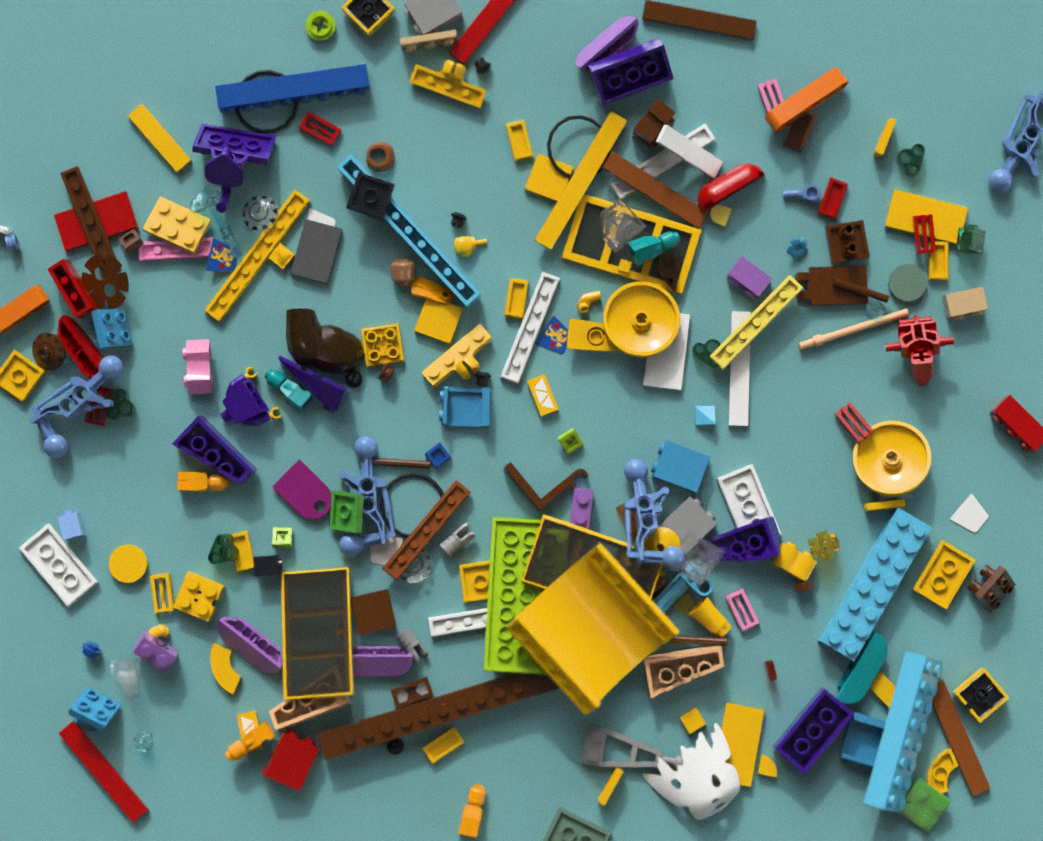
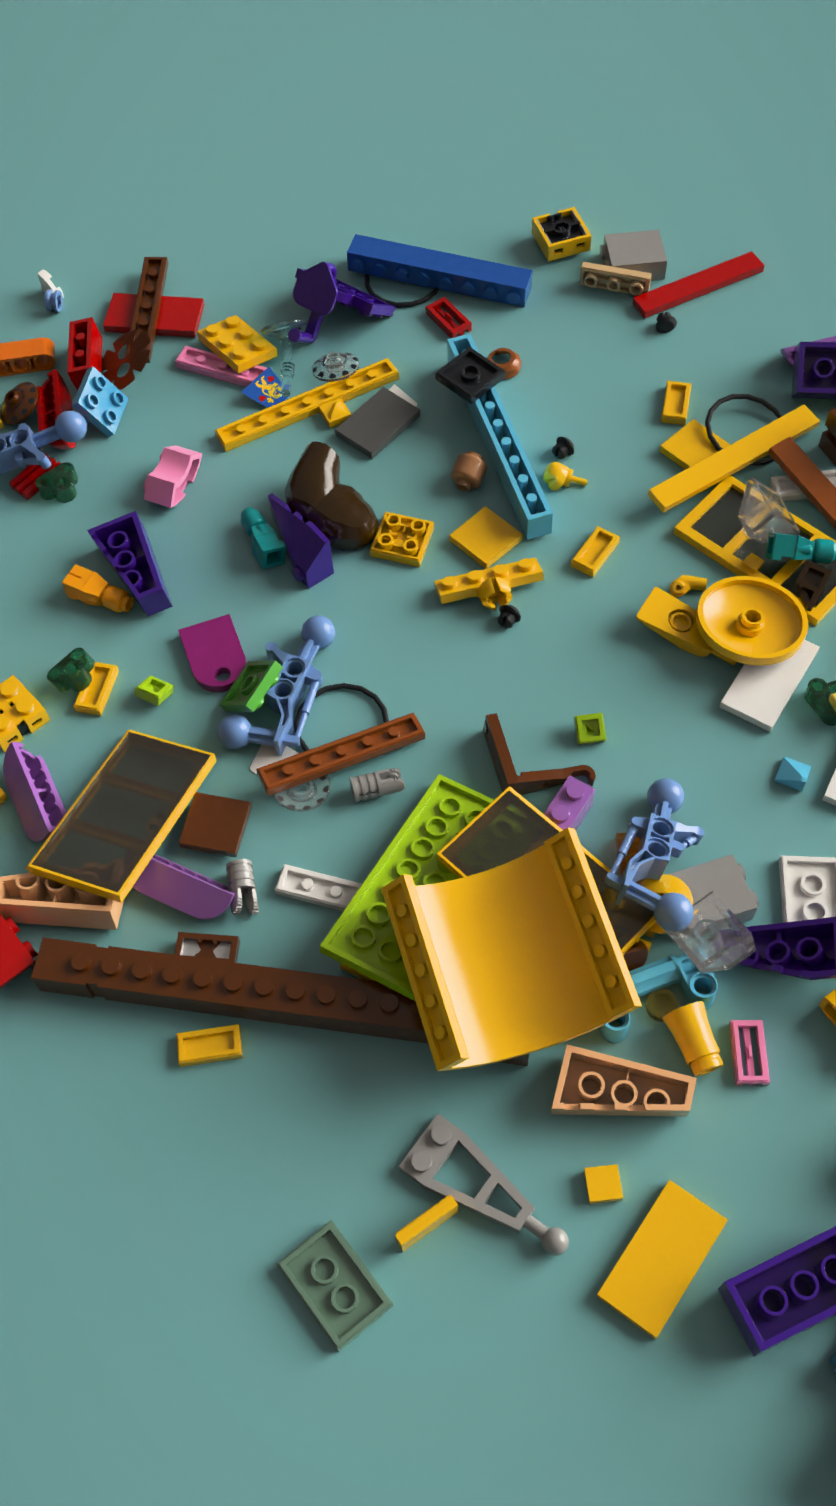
camera: 30 degrees right, 25 degrees down
(131, 241) = (178, 340): reddish brown tile -> none
(159, 138) = (269, 271): yellow tile -> none
(245, 403) = (202, 529): dark purple torso -> none
(267, 565) = (114, 712): black brick -> none
(316, 18) = (500, 229): lime gear -> none
(354, 379) = (347, 558): black piece -> none
(386, 373) = (390, 565): reddish brown bush -> none
(395, 746) = (142, 1015): black piece -> none
(401, 463) = (353, 670): reddish brown bar -> none
(430, 290) = (493, 504): light orange piece -> none
(438, 455) = (405, 680): blue tile -> none
(449, 83) = (619, 322): yellow plate -> none
(465, 407) = (469, 639): dark azure panel -> none
(473, 812) = (194, 1164): light orange piece -> none
(475, 581) = (369, 845): yellow tile -> none
(530, 328) = (596, 588): white tile -> none
(542, 395) = (577, 665): yellow tile -> none
(554, 336) = (623, 609): blue sticker -> none
(680, 466) = (734, 815): dark azure panel -> none
(696, 775) = (568, 1278): white piece -> none
(699, 640) = (662, 1061): reddish brown bar -> none
(767, 766) = (697, 1319): yellow tile -> none
(770, 670) = (761, 1159): clear red tile -> none

